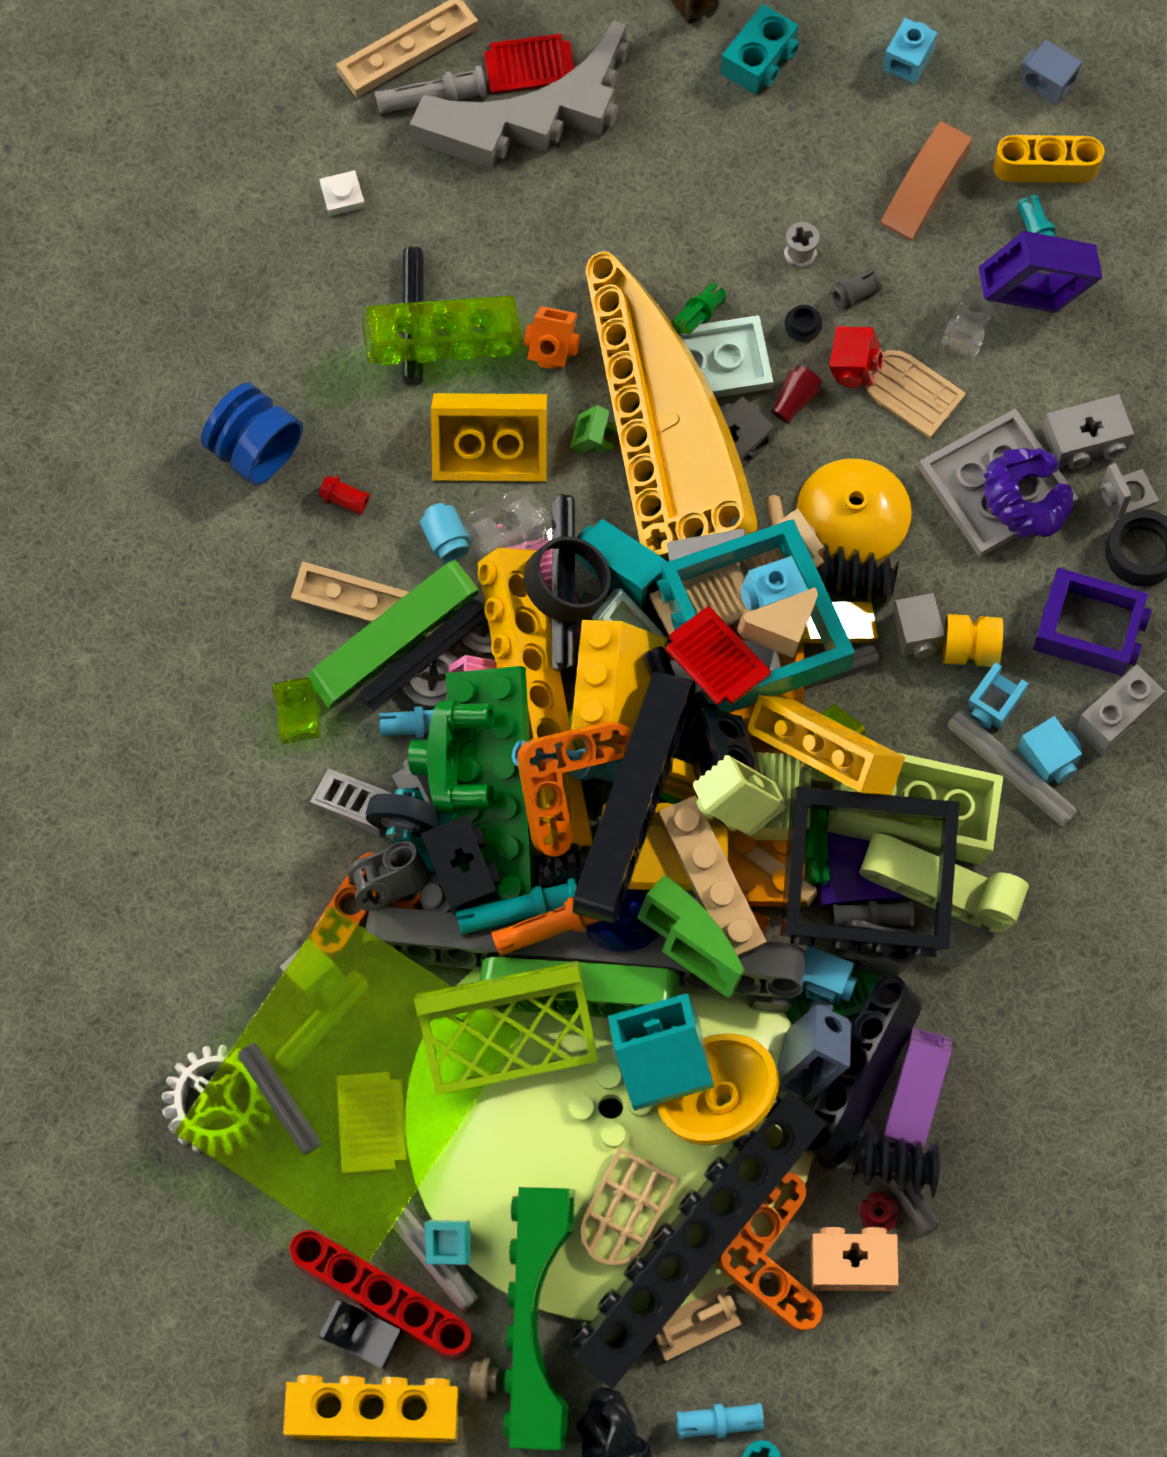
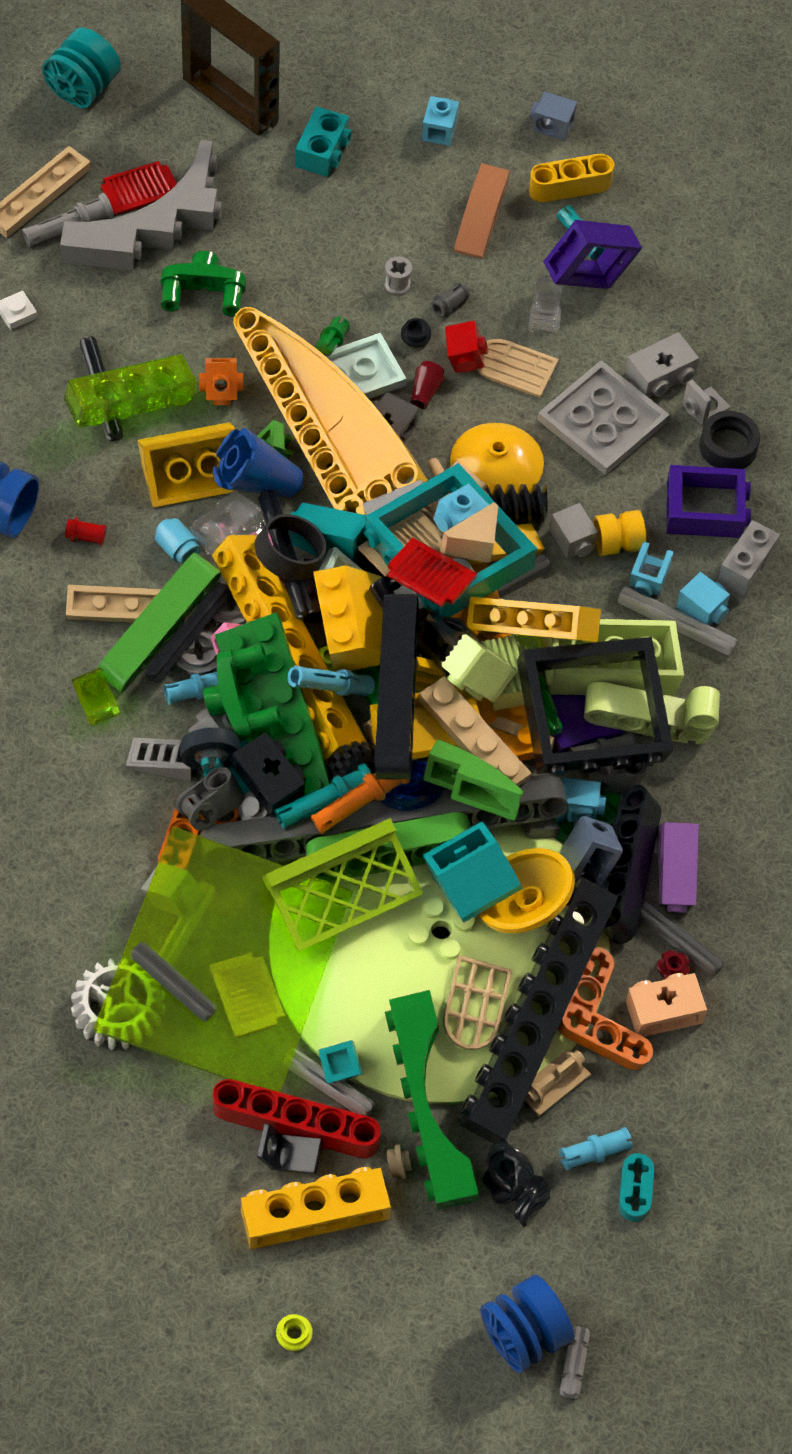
camera: 20 degrees left, 10 degrees down
(551, 776) = (324, 686): orange beam -> none
(558, 462) = (255, 466): none -> blue cone
(569, 192) = (202, 273): none -> green connector
(897, 1163) = (679, 919): black piece -> none
(1006, 502) = (616, 423): dark purple piece -> none

